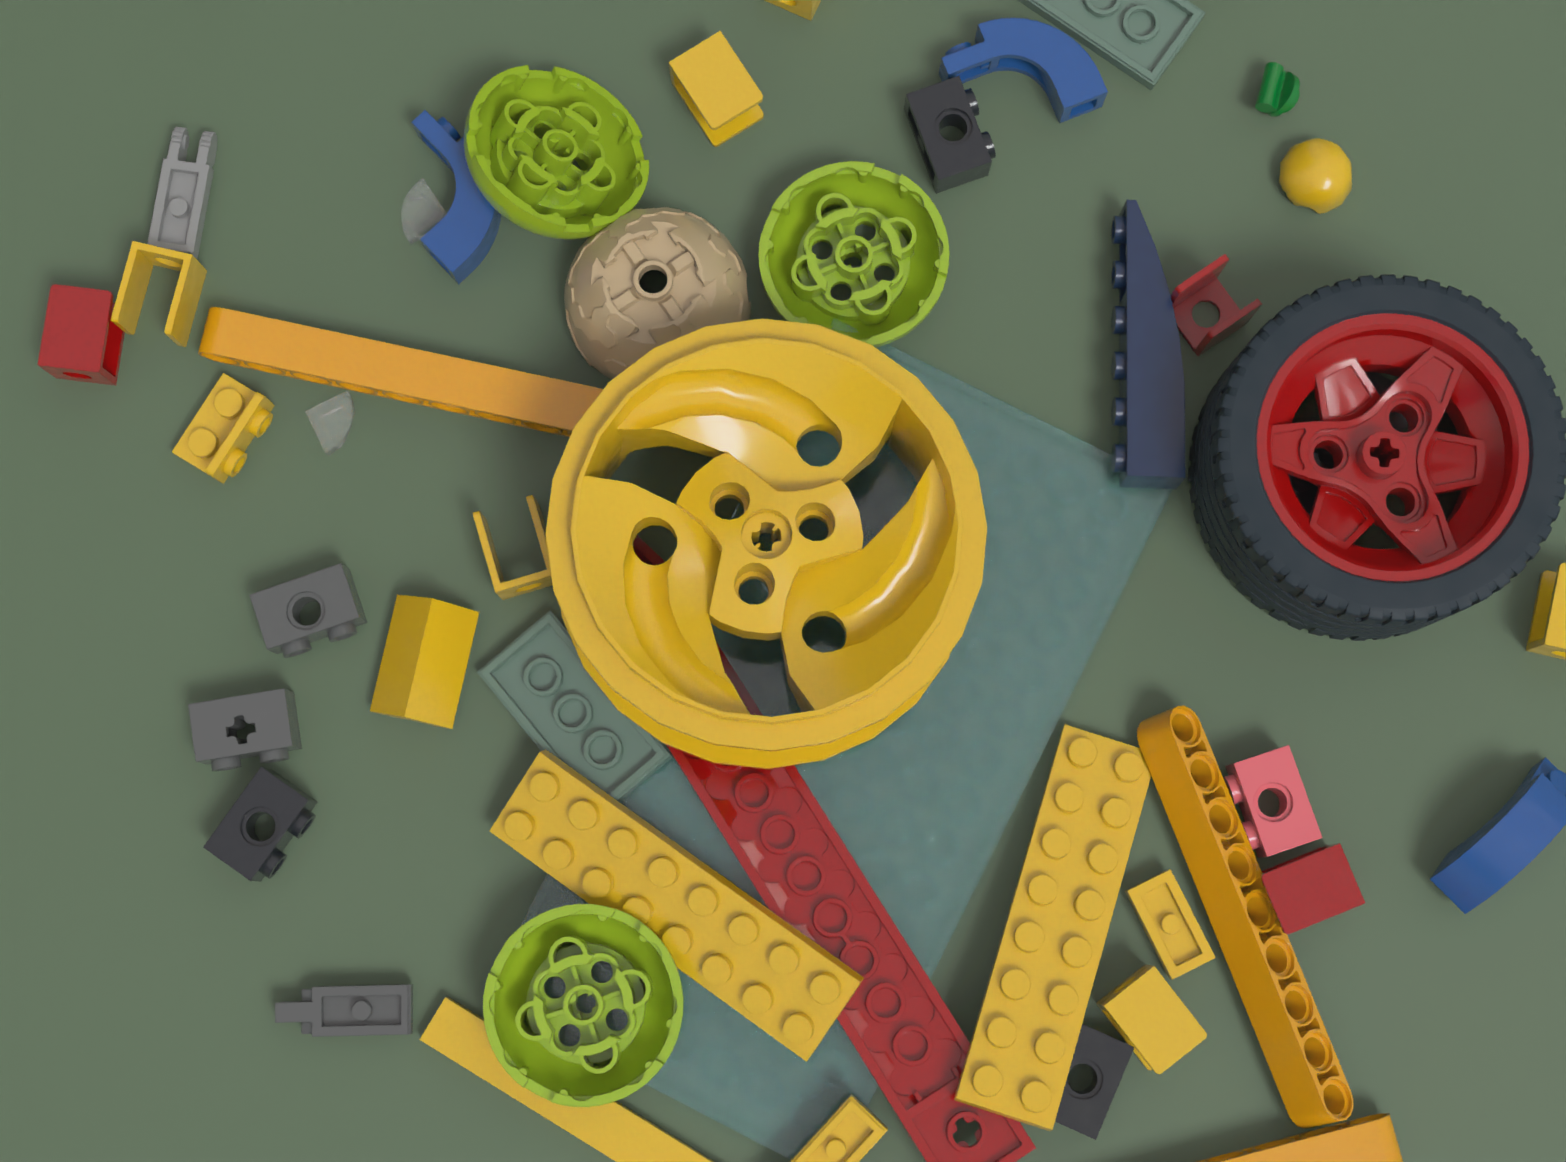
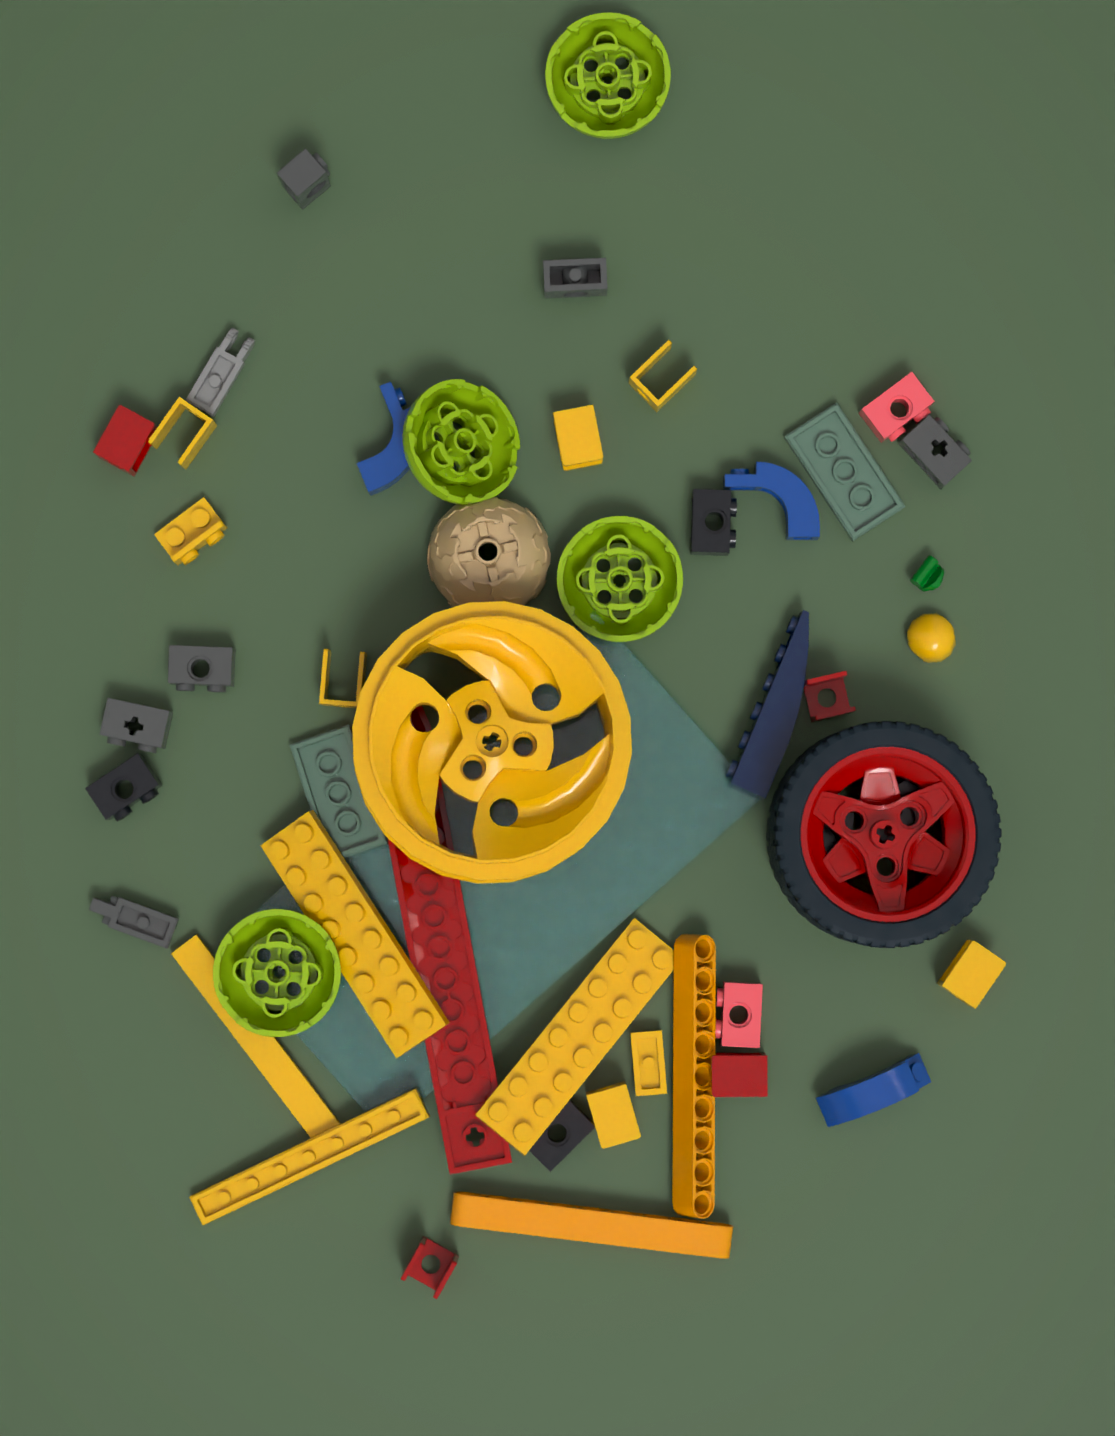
camera: 20 degrees right, 5 degrees up
(333, 421) = (259, 553): clear tile -> none
(395, 371) = (314, 541): light orange beam -> none
(420, 211) = (364, 441): clear tile -> none
(424, 661) = (260, 726): yellow piece -> none

